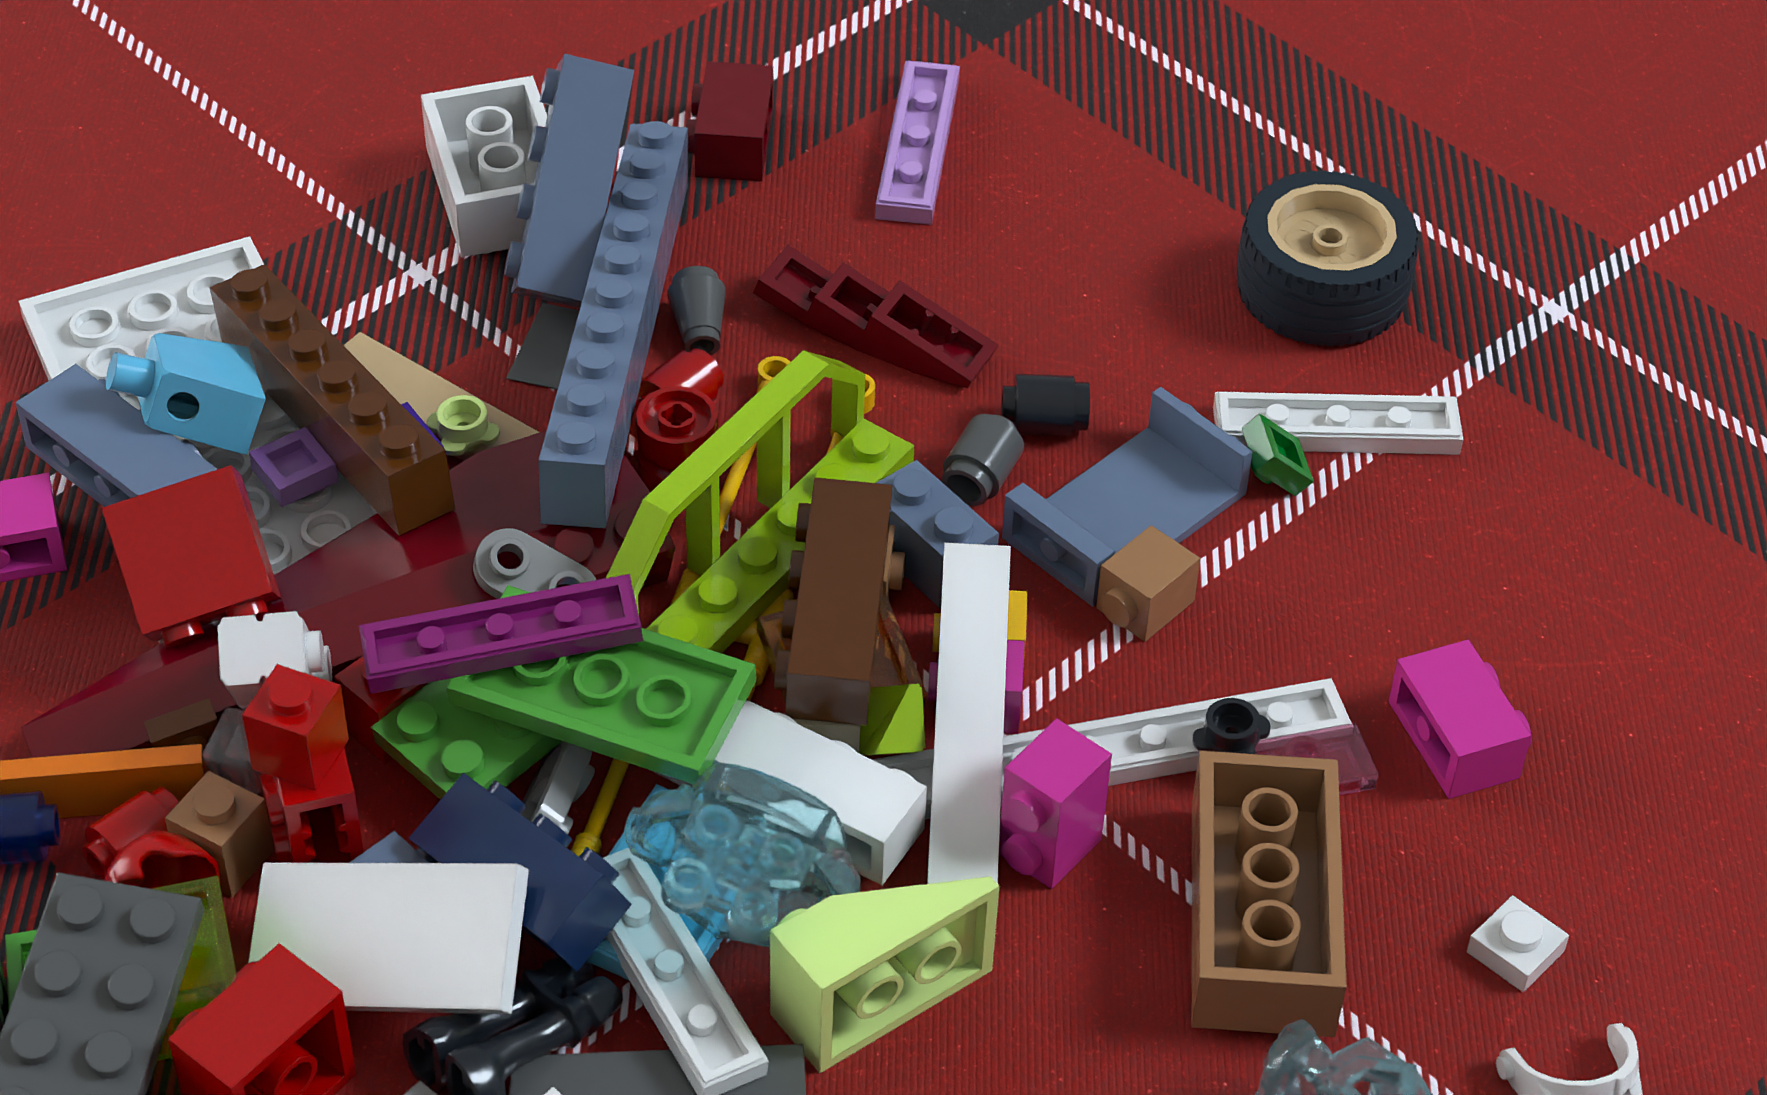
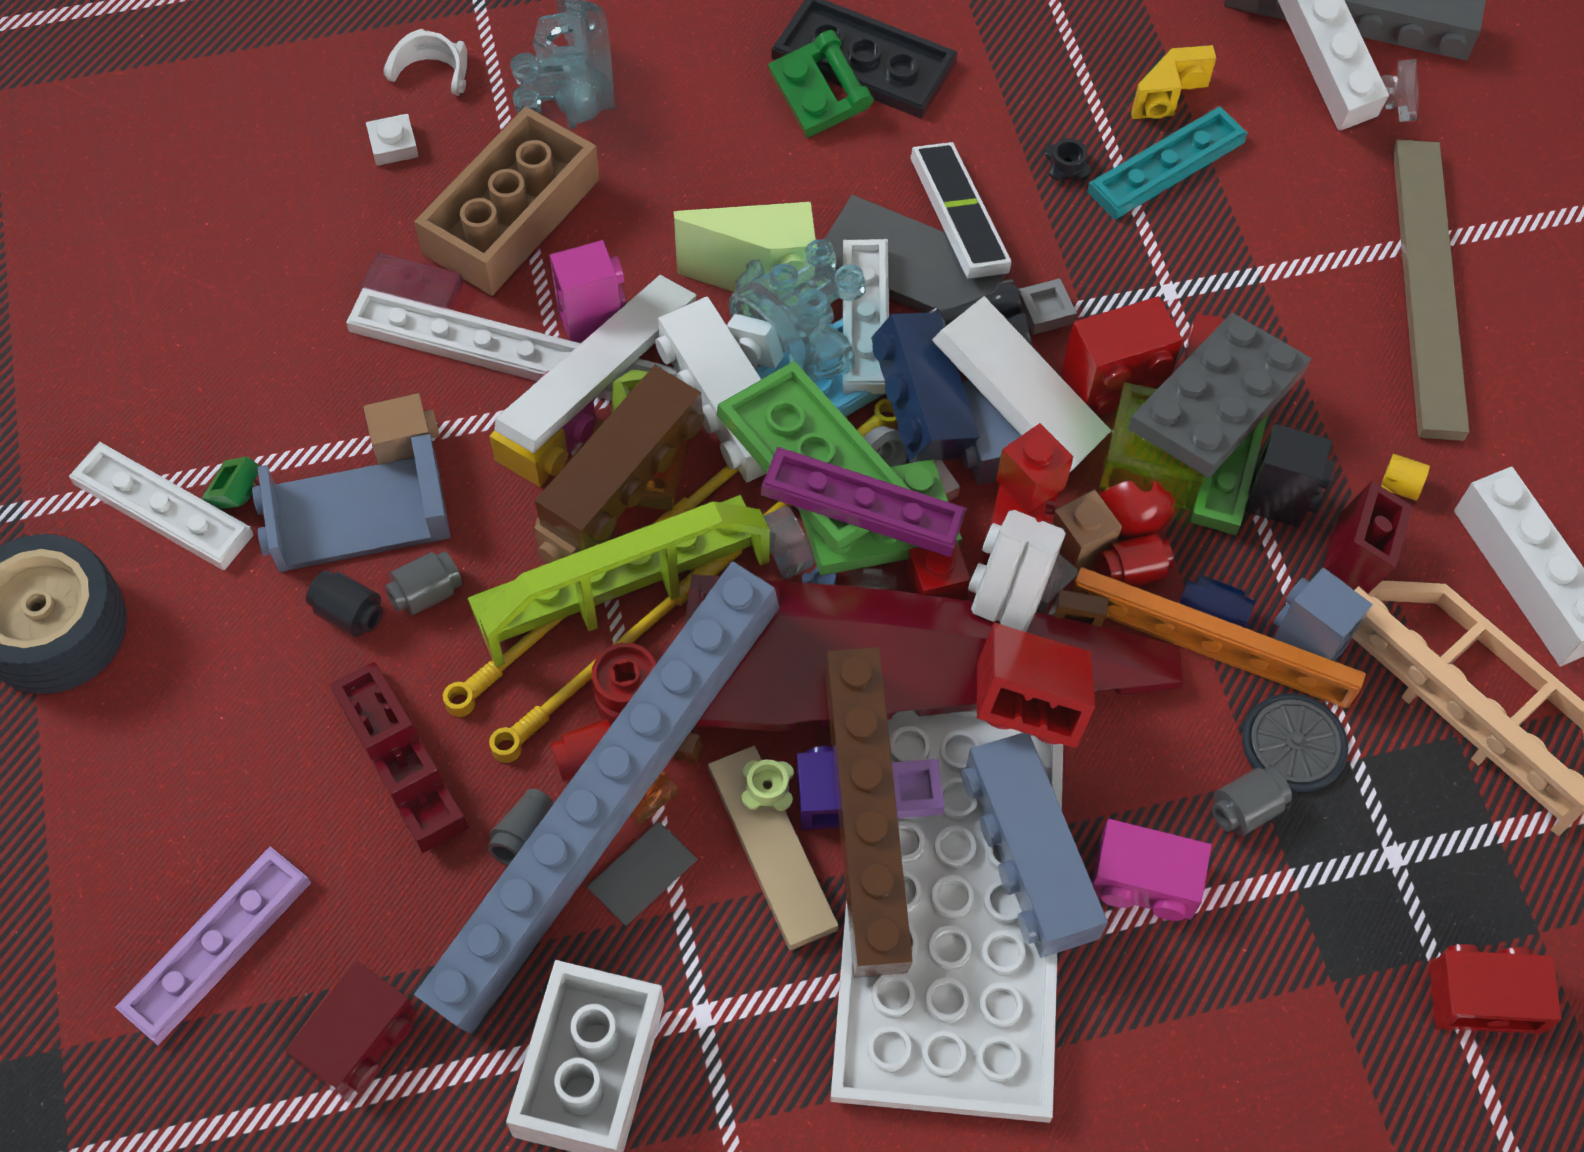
camera: 150 degrees left, 15 degrees up
(193, 389) = (965, 862): medium azure torso -> none
(539, 568) = (804, 578): light grey plate -> none
(571, 179) = (557, 938): sand blue brick -> none
(925, 519) = (507, 525): sand blue brick -> none
(1231, 727) = (442, 290): black plate -> none
(1460, 718) = (301, 255): dark pink brick -> none

